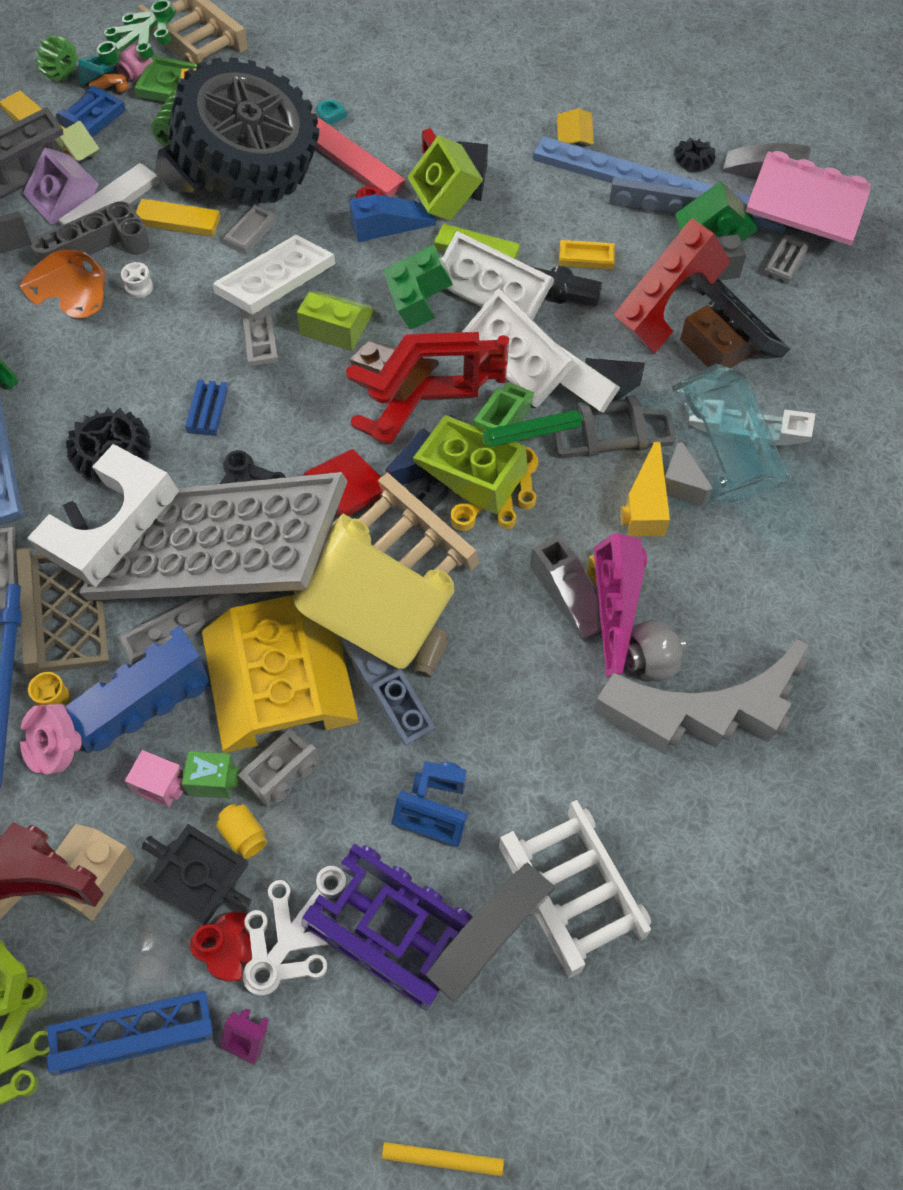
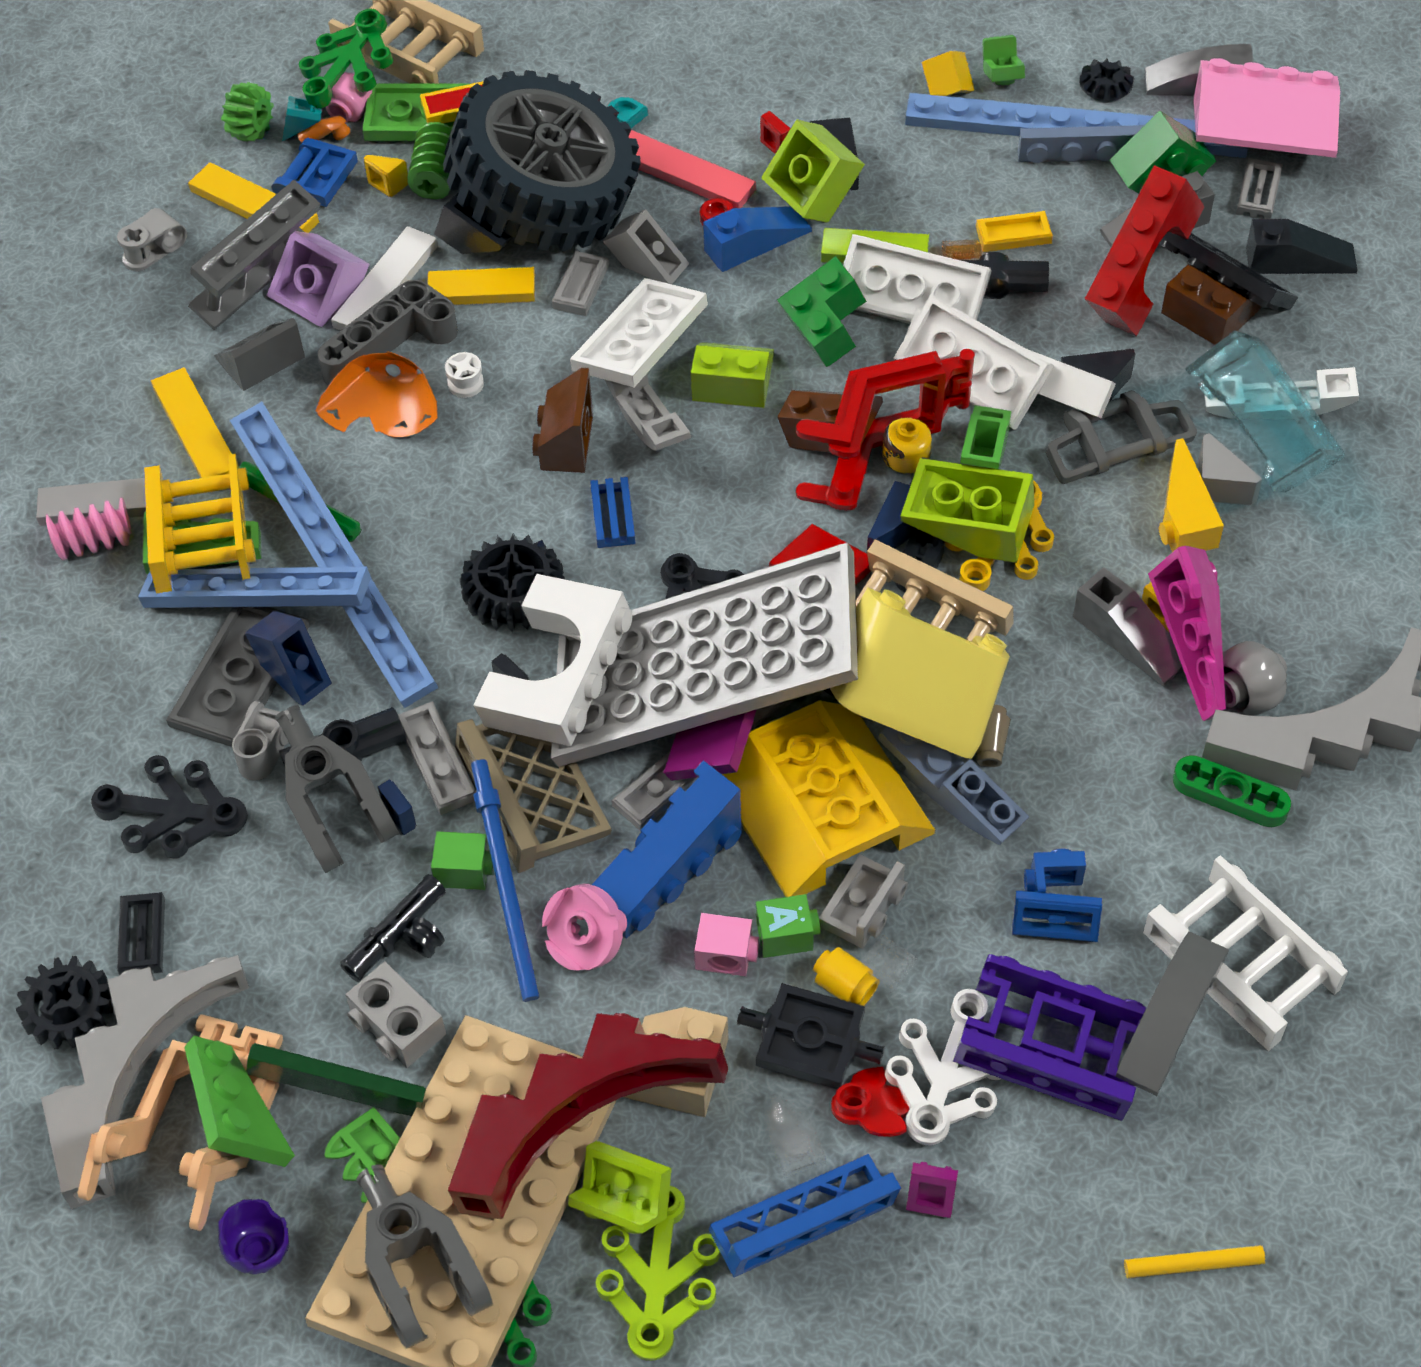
camera: 10 degrees left, 5 degrees down
(48, 686) = (556, 870): yellow wheel -> none
(78, 142) = (329, 218): yellowish green panel -> none
(138, 121) = (386, 174): none -> yellow slope
(194, 333) = (565, 425): none -> reddish brown slope
(200, 613) = (716, 743): none -> magenta tile
(305, 213) = (646, 248): none -> light grey slope
(443, 399) = (905, 443): none -> yellow head
(531, 428) = (1032, 452): green axle -> none
(540, 260) = (961, 249): none -> clear orange tile
(611, 757) = (1223, 775): none -> green beam
(619, 124) = (1001, 60): none -> bright green bracket
(799, 310) = (1293, 248): none -> black slope

